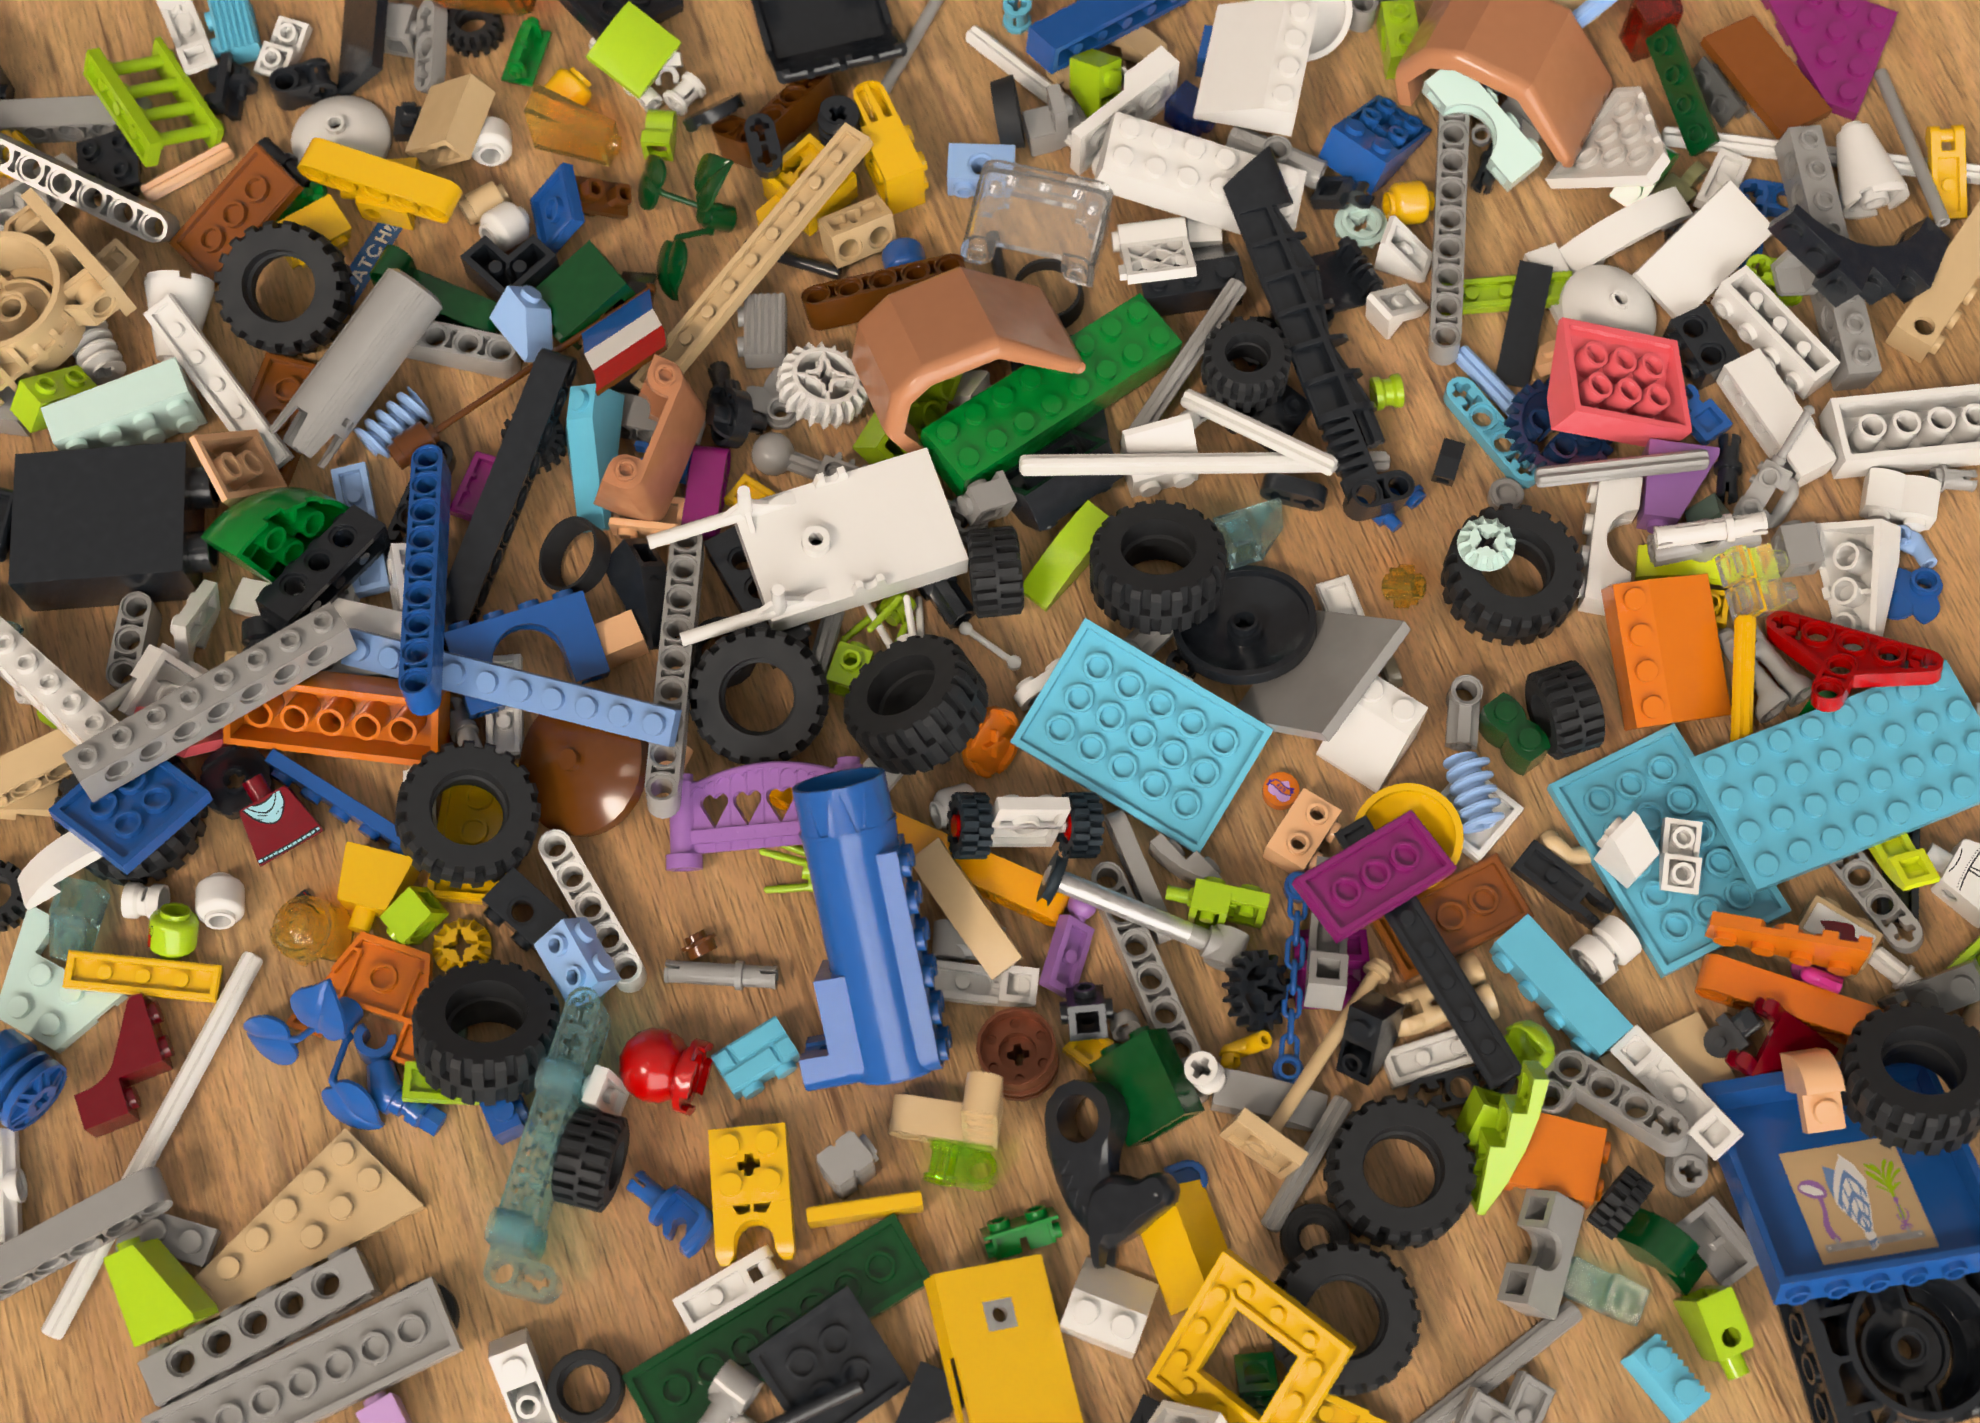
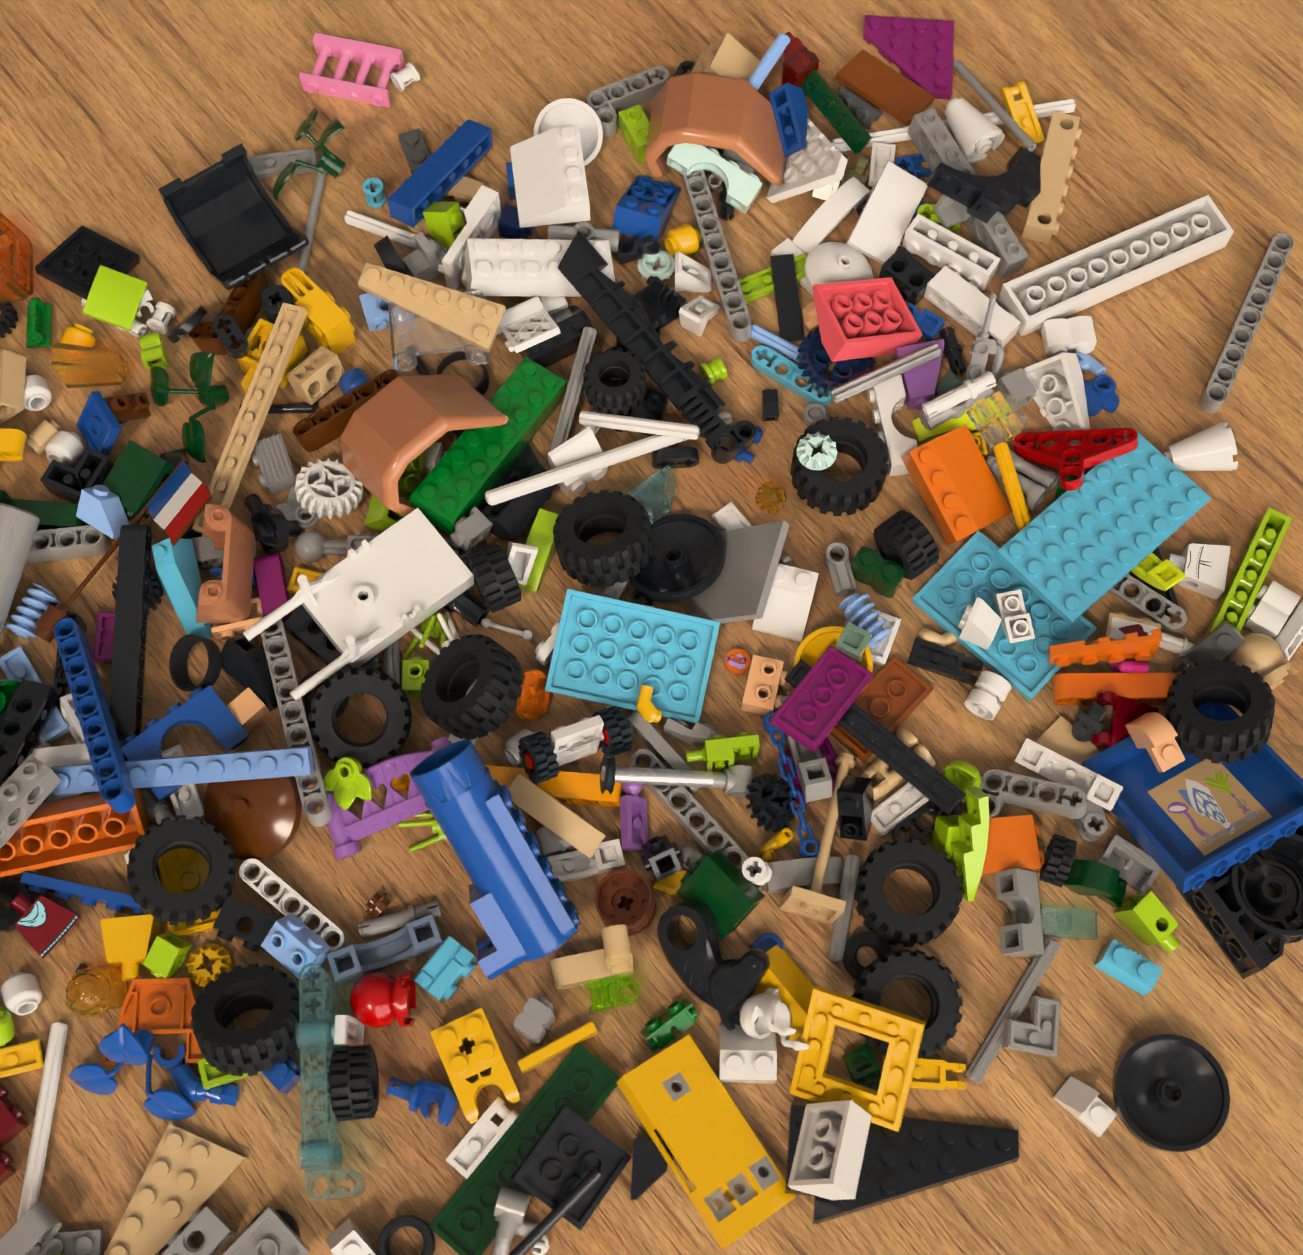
camera: 20 degrees left, 0 degrees up
(714, 777) = (348, 786): none -> lime plate
(716, 1008) = (409, 942): none -> sand blue arch
(1038, 561) = (521, 560): none -> white slope
(1063, 202) = (452, 310): none -> tan wing
(1135, 807) = (646, 707): none -> yellow arm
(1151, 1263) = (767, 1014): none -> white hair
(1443, 815) = (853, 642): none -> sand green panel
(1559, 988) = (968, 731): medium azure brick -> none
(1617, 78) = (790, 116): none -> blue slope
(1954, 479) = (1097, 312): light grey pin -> none

